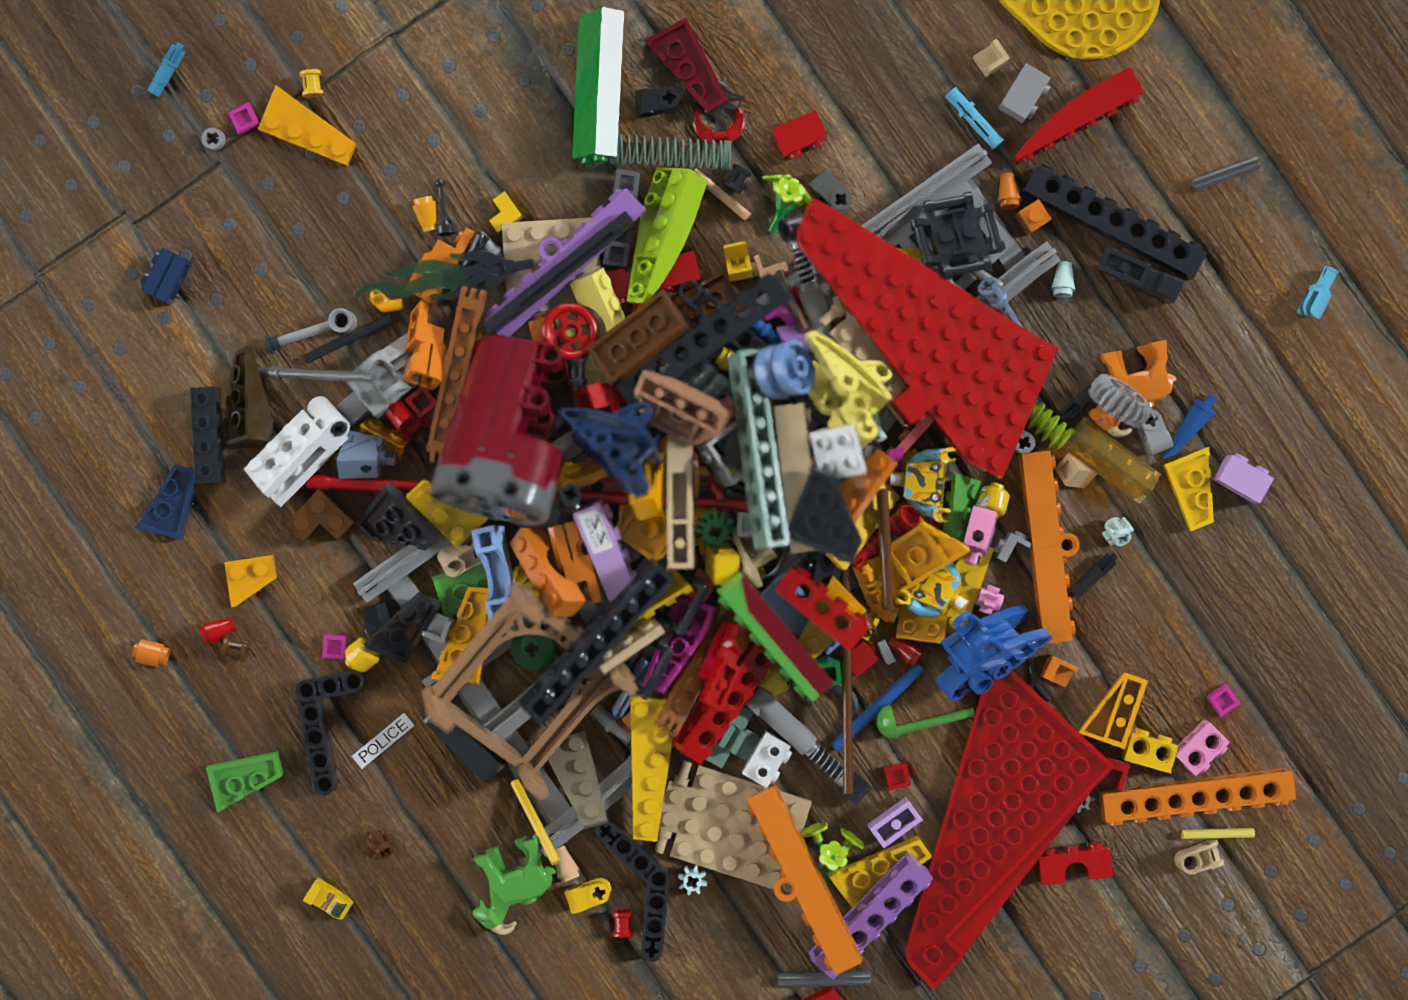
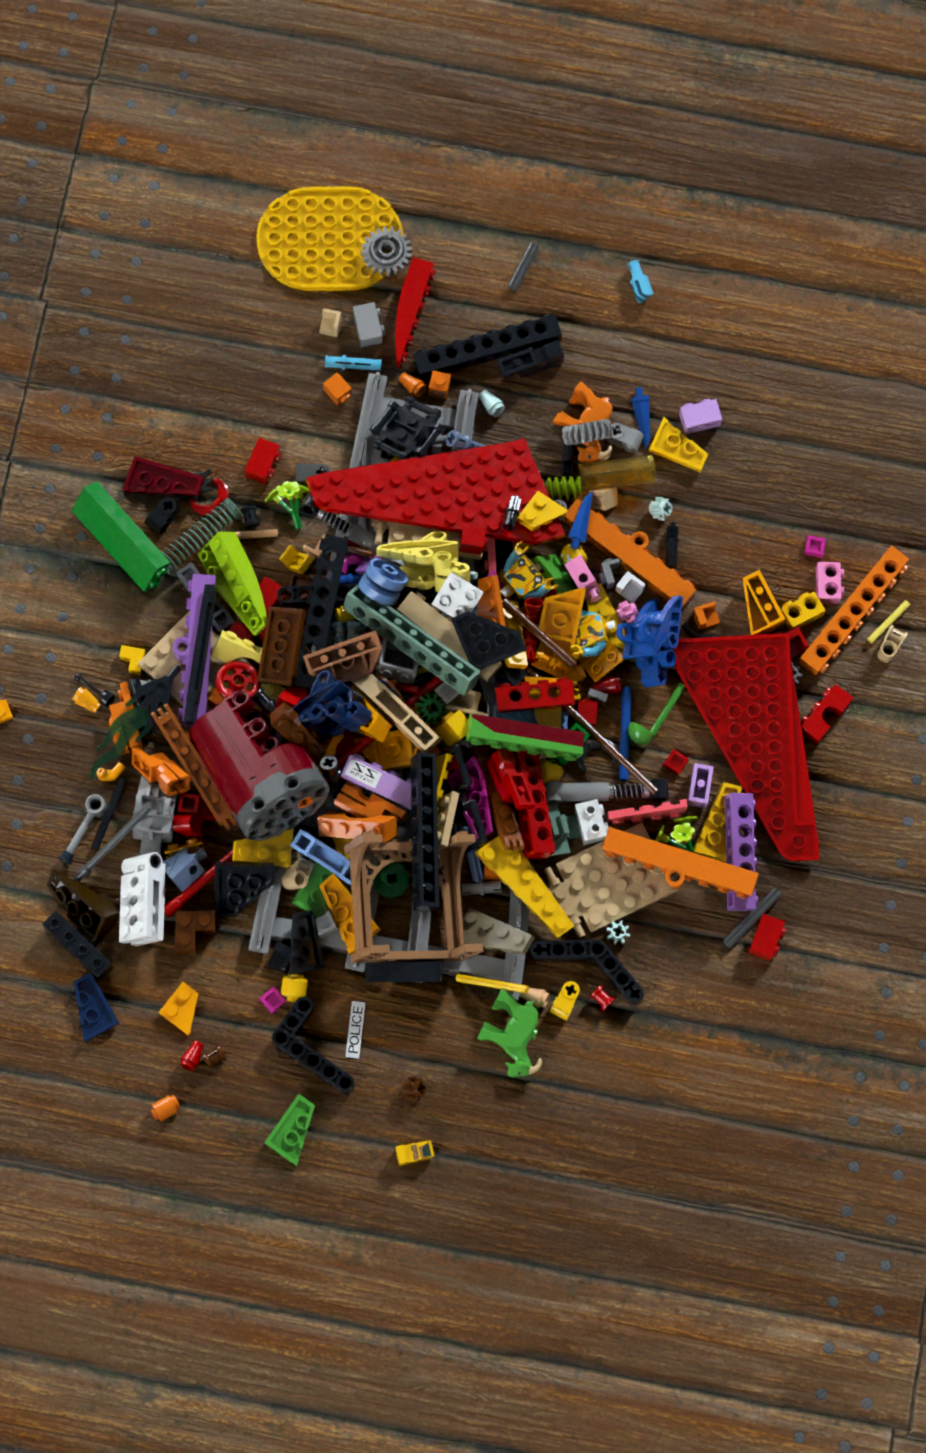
camera: 45 degrees left, 15 degrees down
(564, 423) = (286, 722): none -> reddish brown arch
(828, 804) = (665, 810): none -> coral wing
(935, 131) = (337, 389): none -> orange brick
(971, 414) = (512, 513): none -> black axle
(999, 437) = (540, 512): none -> yellow wing
(1016, 578) = (630, 587): none -> white panel
(1026, 480) = (580, 525): none -> blue bar
(1122, 27) = (383, 241): none -> light grey gear

